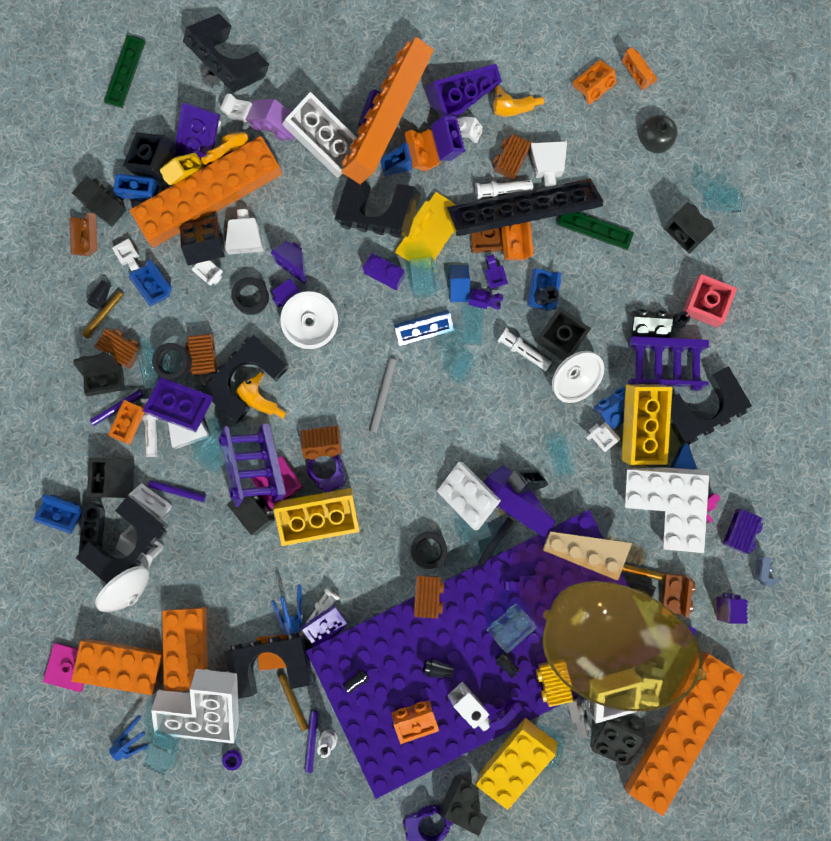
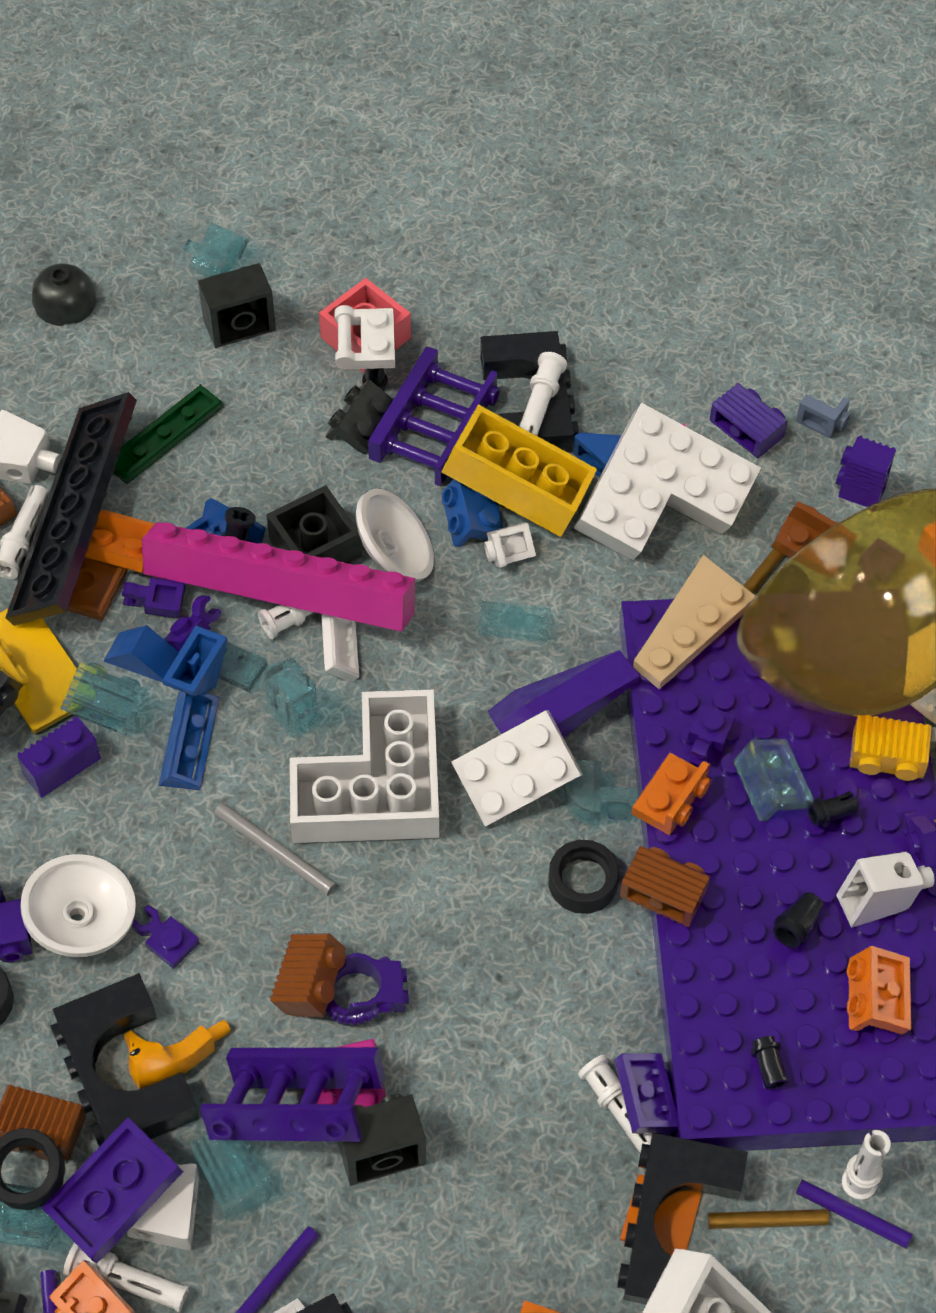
camera: 65 degrees left, 25 degrees down
(290, 623) = (619, 1158): blue plant -> none
(315, 368) = (167, 940): none -> dark purple plate
(316, 516) = (441, 1028): yellow brick -> none
(434, 437) = (375, 794): none -> white brick
(459, 313) = (197, 663): none -> blue slope
(482, 579) = (671, 793): none -> orange bracket
(495, 541) = (613, 762): black bar -> none
(506, 376) = (340, 647): none -> white plate
(526, 330) = (279, 576): none -> dark pink brick
(526, 480) = (531, 676): black slope -> none
(696, 312) = (376, 338): none -> white plate
(707, 415) = (543, 387): none -> white pin

